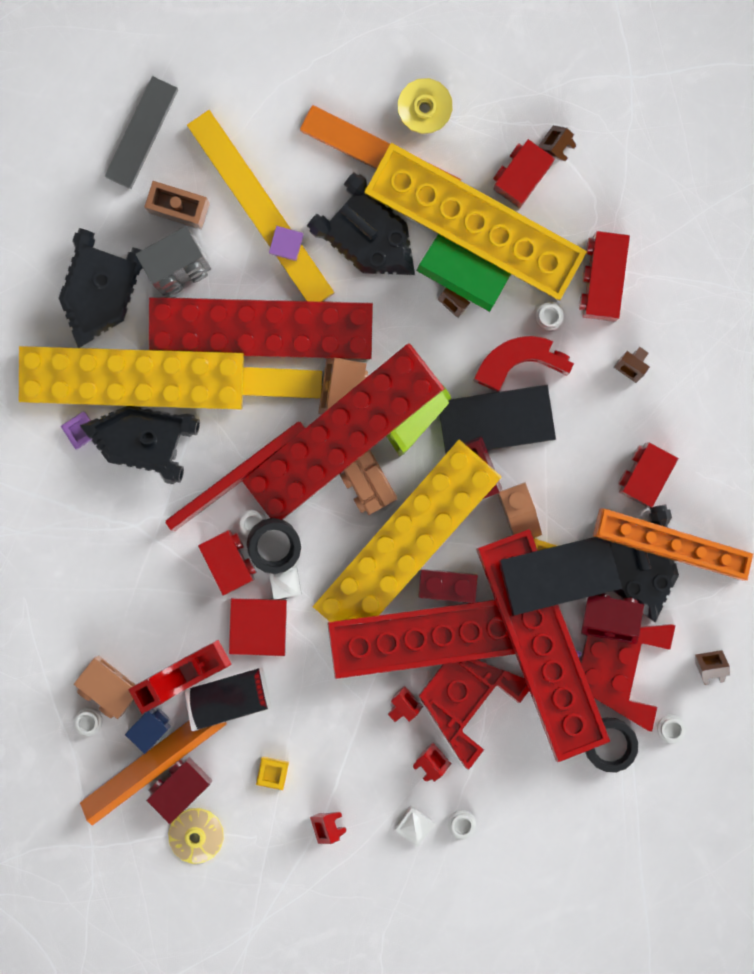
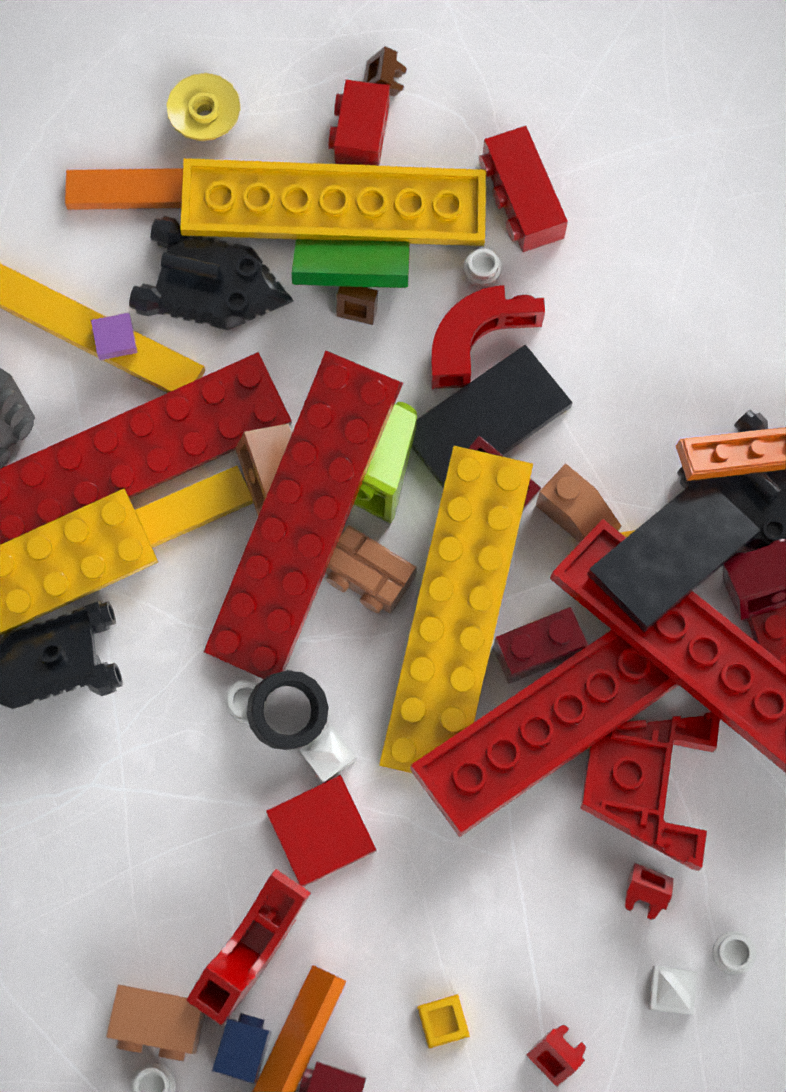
camera: 30 degrees left, 15 degrees down
(227, 561) = (237, 764): red brick -> none
(227, 699) = (329, 948): black sticker -> none
(231, 479) = (185, 661): red tile -> none
(404, 705) = (569, 831): red tile -> none
(632, 364) = (615, 270): reddish brown tile -> none
(647, 474) = (708, 386): red brick -> none

